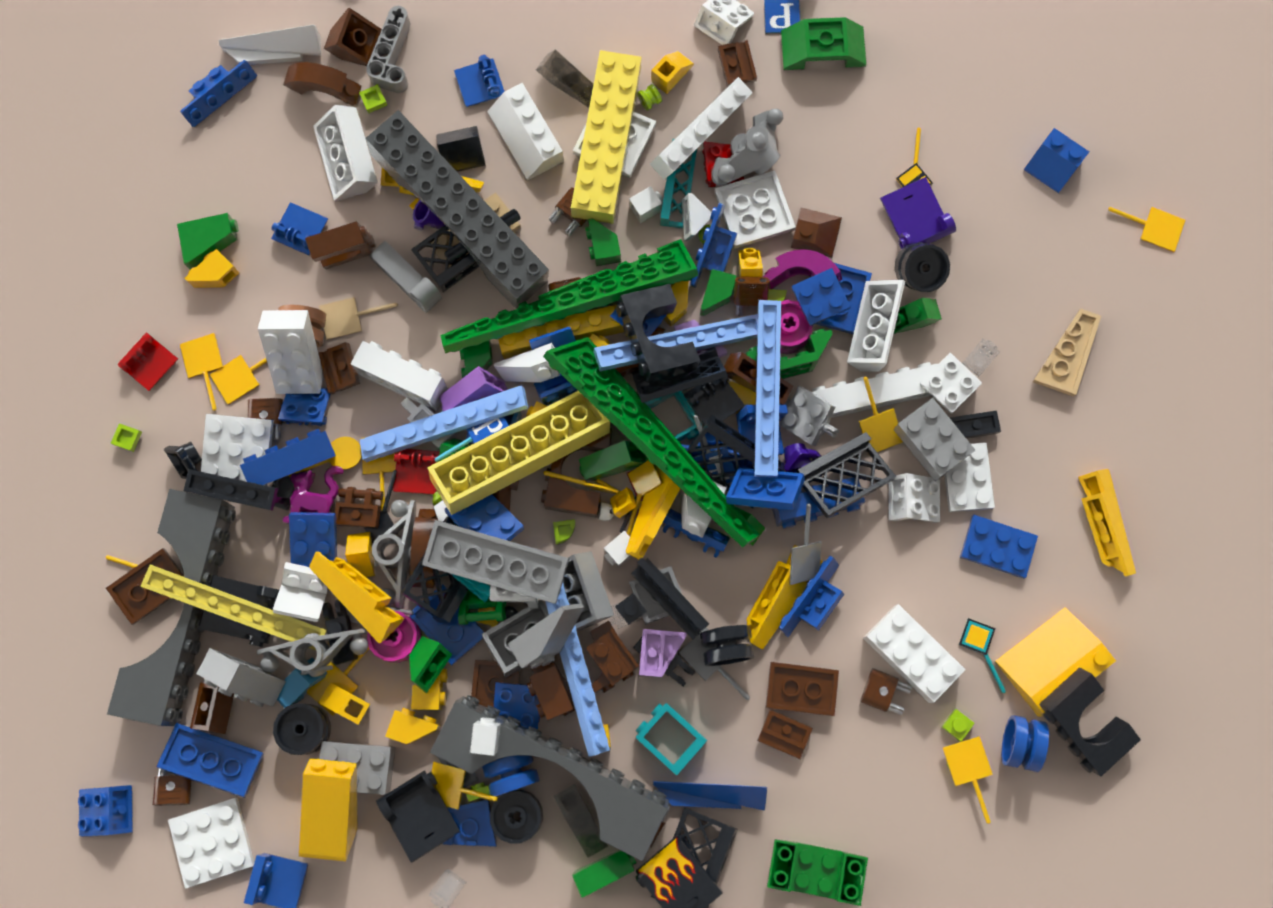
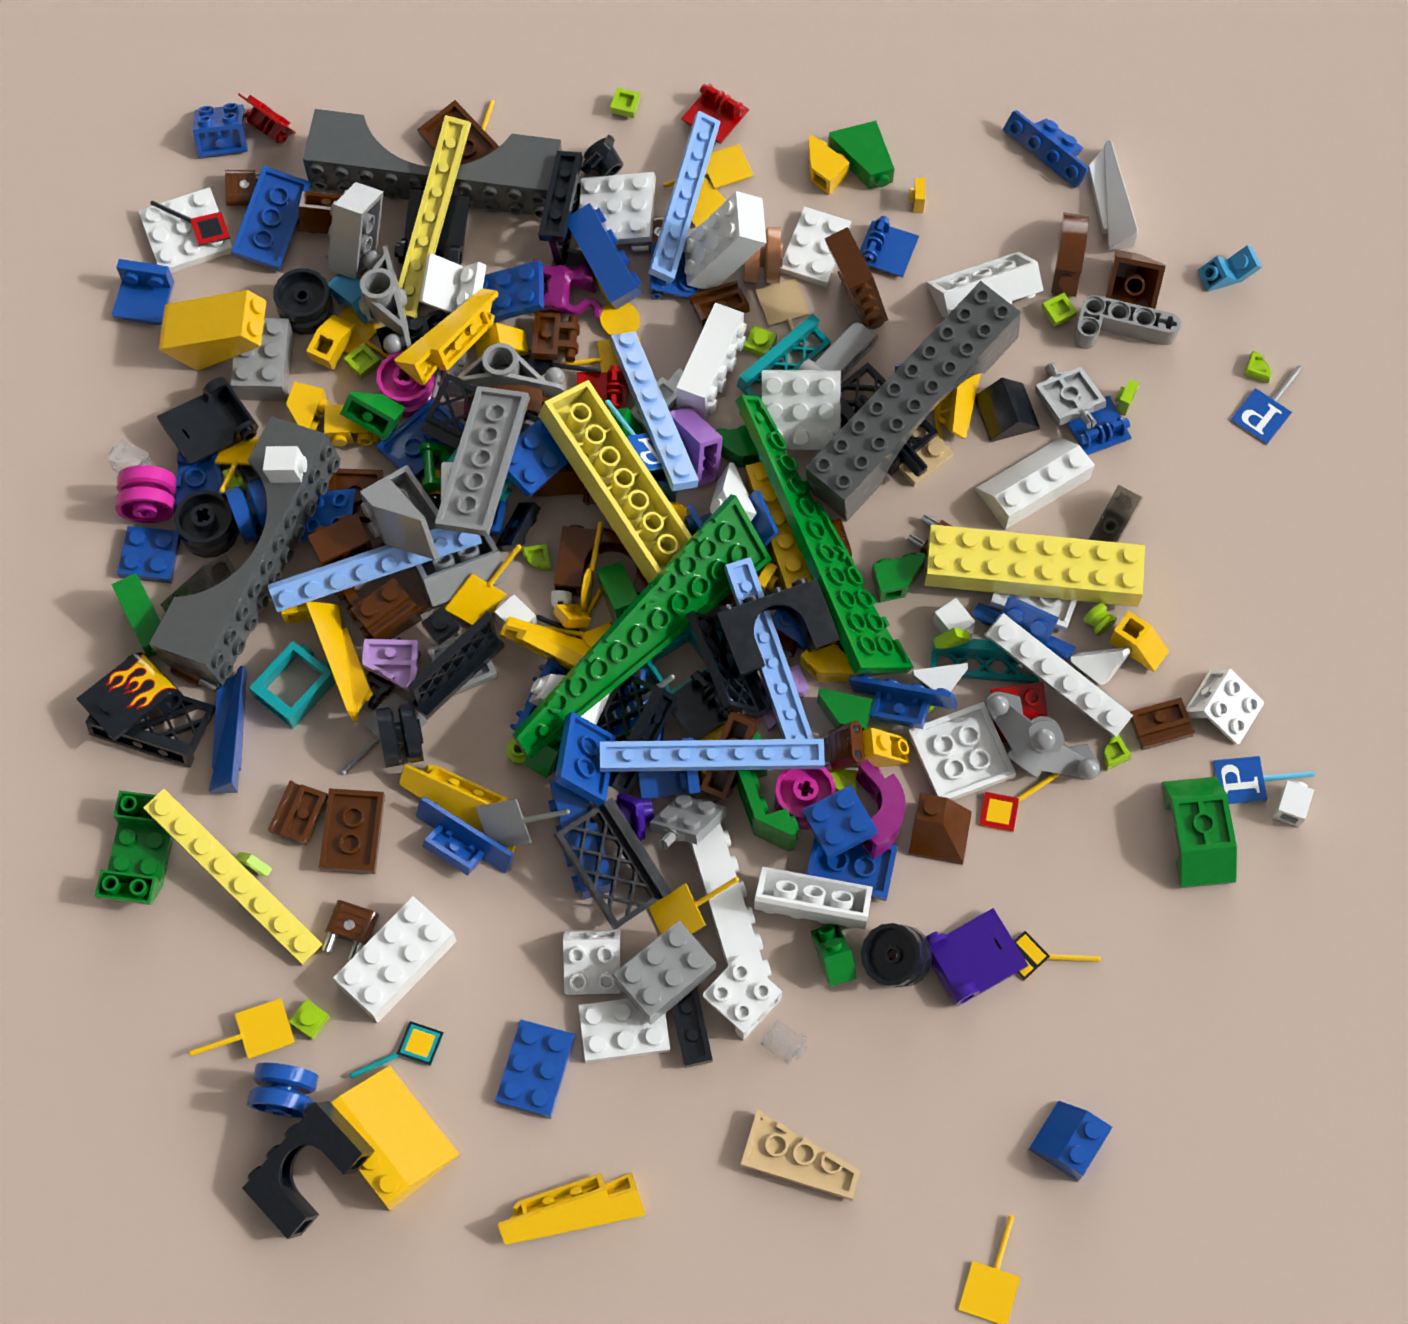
camera: 85 degrees right, 10 degrees down
(95, 772) = (267, 120): none -> red hinge
(213, 819) = (207, 228): none -> piece
(234, 388) = (684, 197): none -> light blue plate
(252, 198) = (917, 195): none -> yellow plate
(289, 284) = (808, 252): none -> white plate
(365, 677) = (362, 361): none -> lime plate
(378, 335) = (760, 341): none -> lime plate
(395, 322) = (781, 351): none -> teal fence
(451, 299) = (803, 405): none -> white plate
(454, 97) = (1070, 395): none -> light grey plate
(458, 56) = (1125, 396): none -> lime plate
(486, 871) = (145, 494): none -> dark pink wheel
(537, 540) = (518, 526): none -> black plate
(538, 869) = (149, 554): none -> blue plate
(604, 575) = (478, 596): none -> yellow piece
(650, 695) = (341, 656): none -> yellow wedge
(651, 146) = (1030, 618): none -> blue bracket
(667, 201) = (952, 638): none -> lime tile
(687, 98) = (1101, 664): none -> white slope
(736, 557) = (516, 758): none -> lime plate
(758, 100) = (1115, 753): none -> lime tile
(799, 186) = (1001, 810): none -> piece
(827, 773) = (254, 863): none -> tile
(842, 789) = (233, 876): none -> light yellow plate

